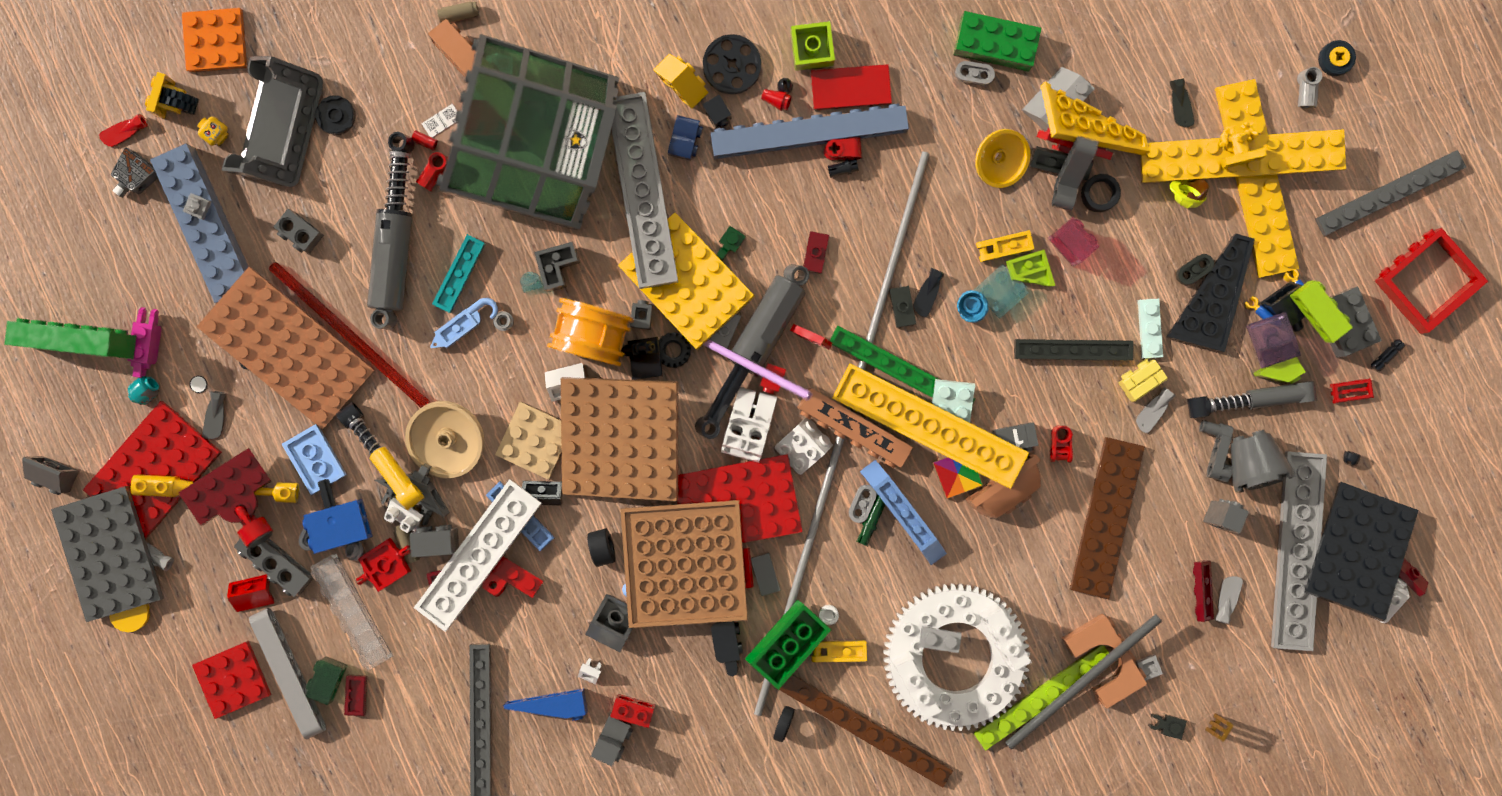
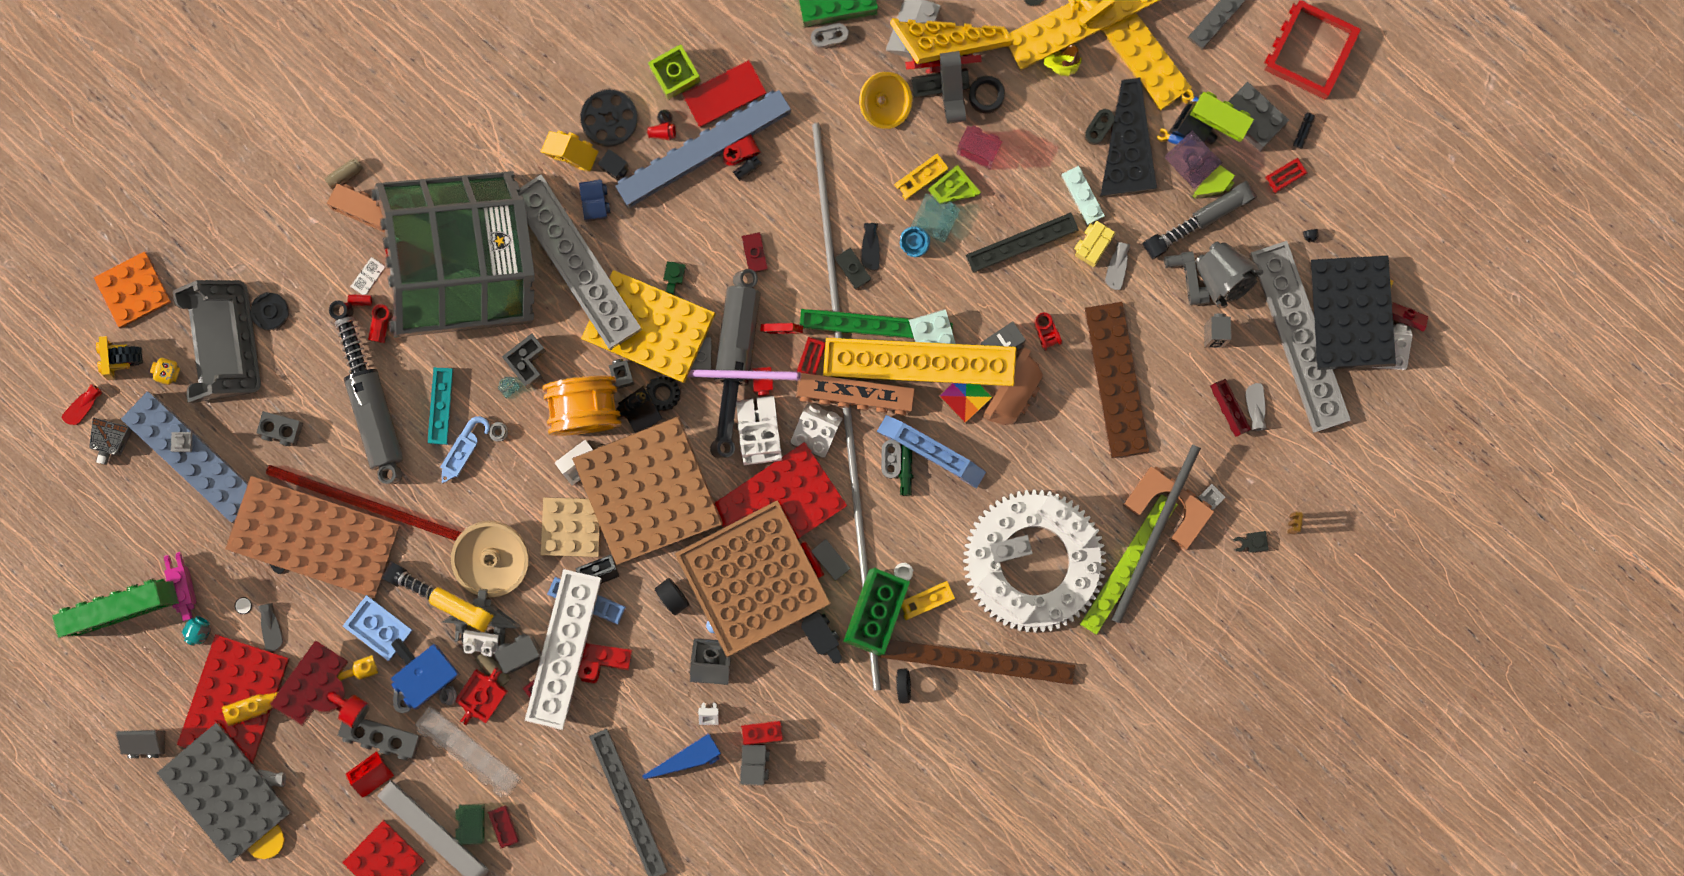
camera: 20 degrees left, 5 degrees down
(838, 362) = (816, 343): none -> red tile

